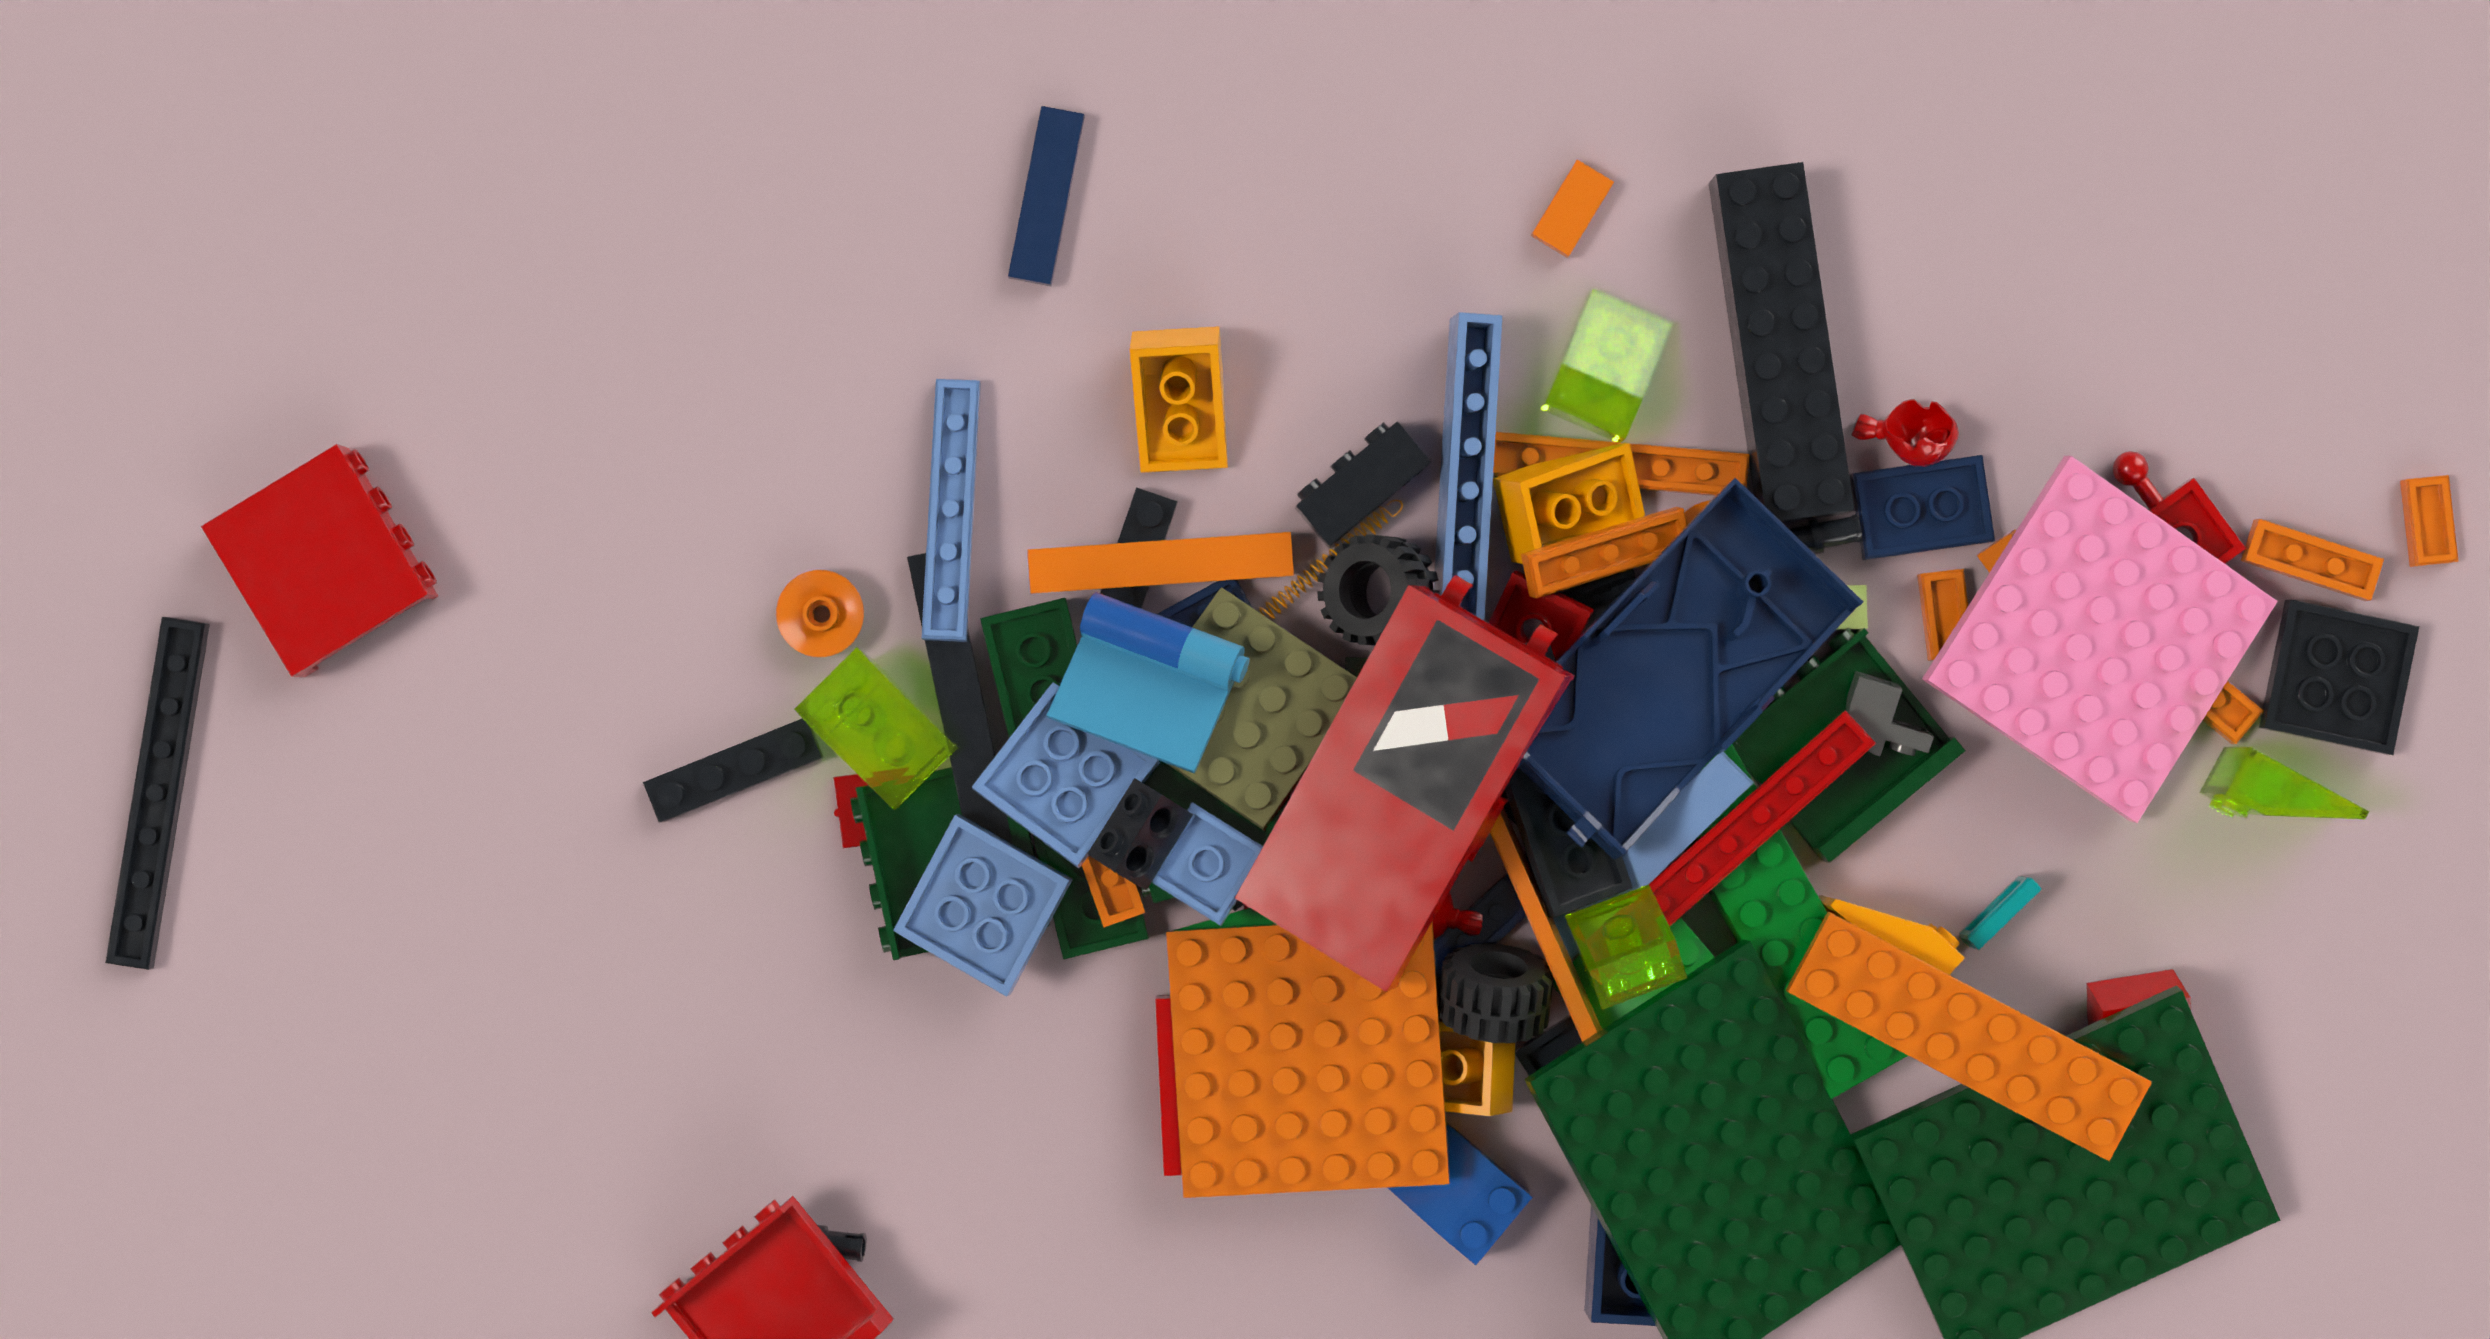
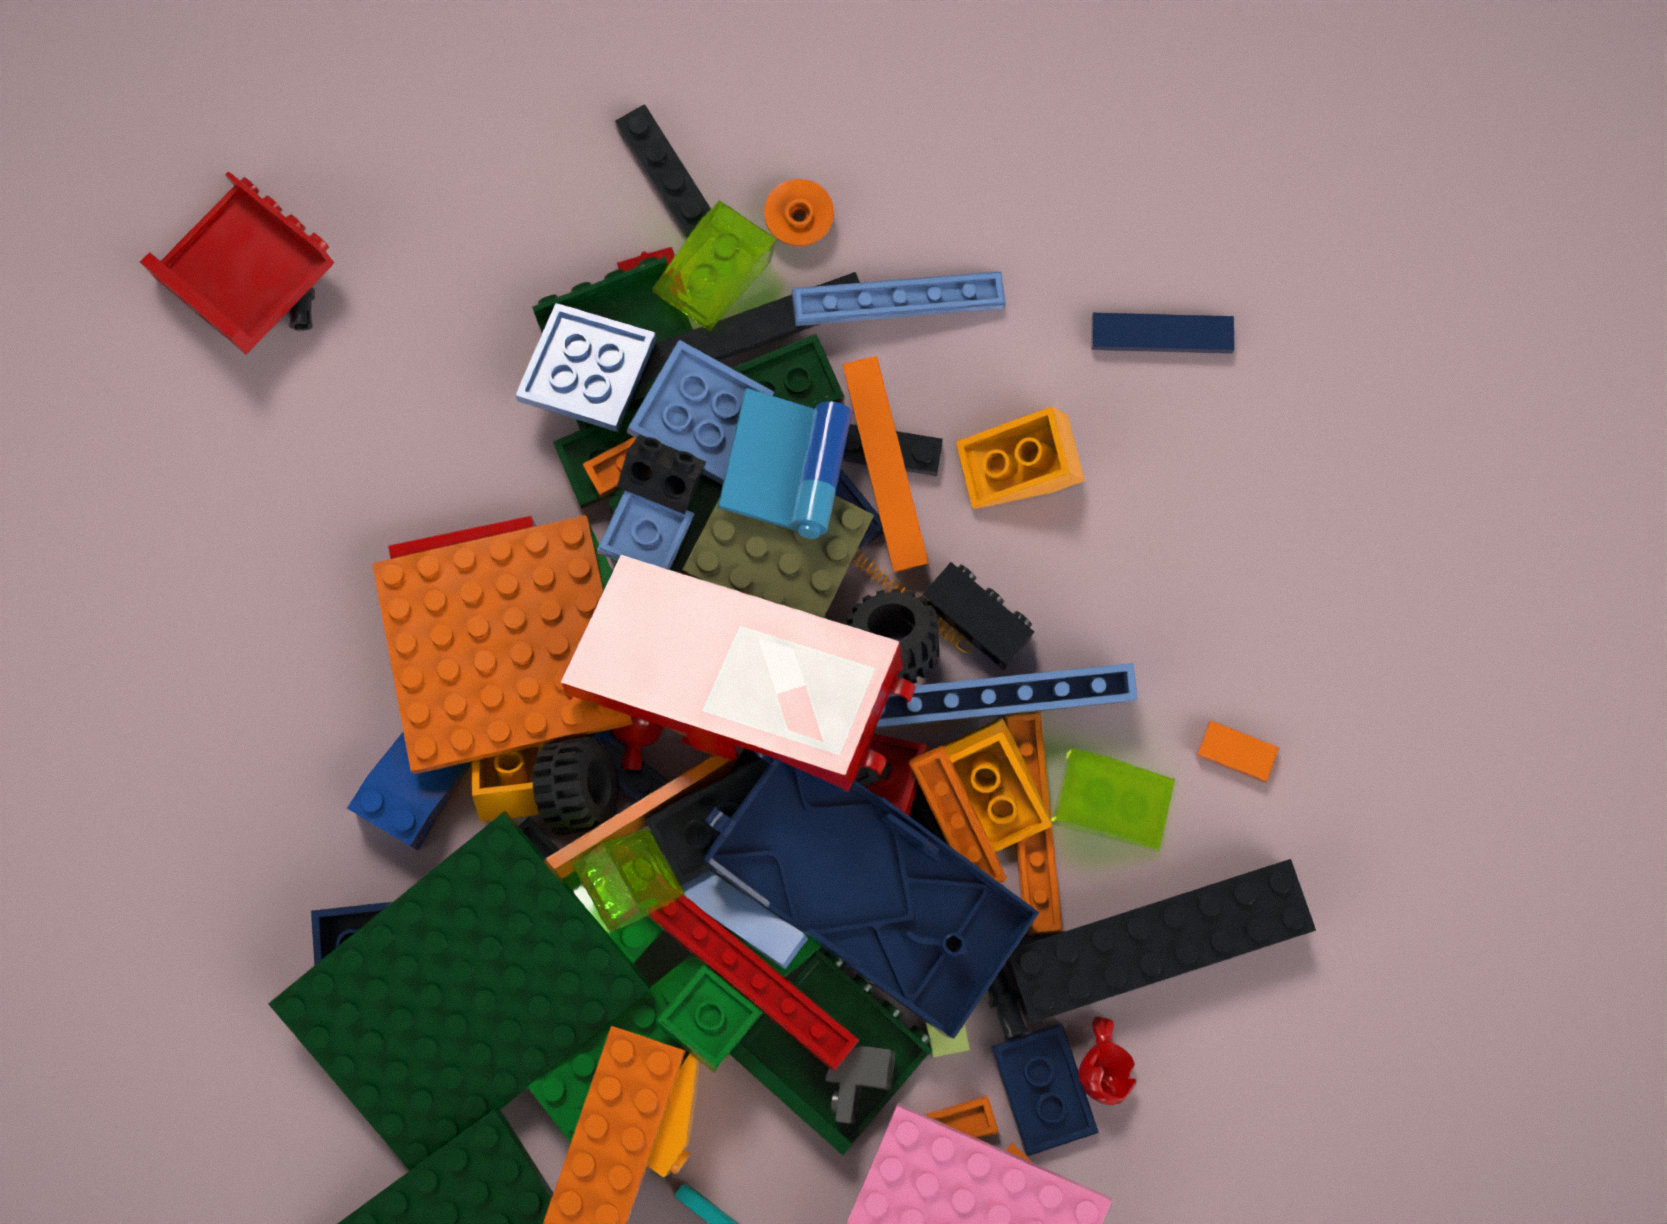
camera: 80 degrees right, 10 degrees down
(1793, 878) = (708, 1017): none -> green tile

